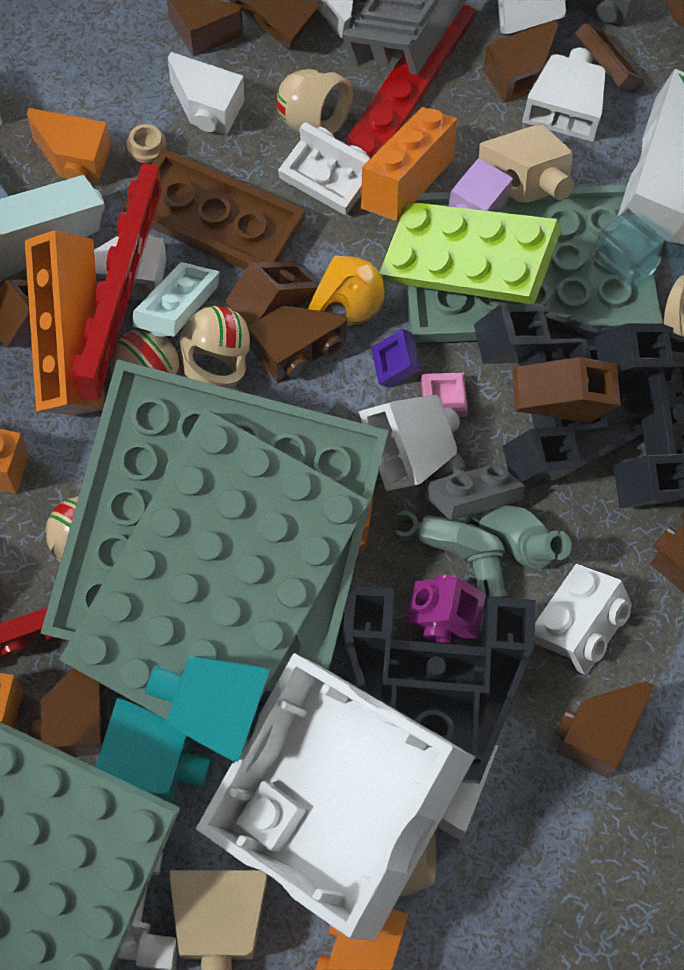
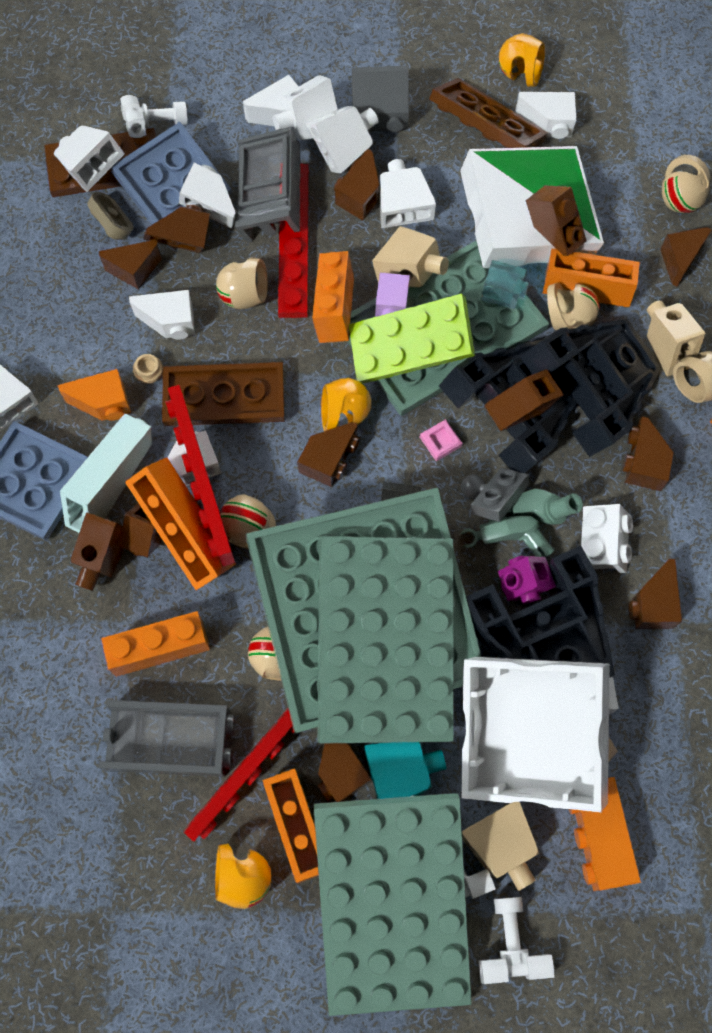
camera: 25 degrees left, 5 degrees up
(175, 299) = (240, 467): light aqua plate -> none
(211, 701) = (432, 716): teal torso -> none
(216, 333) = (283, 476): tan helmet -> none
(270, 286) = (294, 429): reddish brown slope -> none
(271, 816) = (500, 764): white plate -> none
(325, 168) = (279, 326): white bracket -> none
(396, 358) = (399, 432): dark purple plate -> none
(417, 438) = (449, 474): white torso -> none
(610, 57) = (414, 156): reddish brown tile -> none

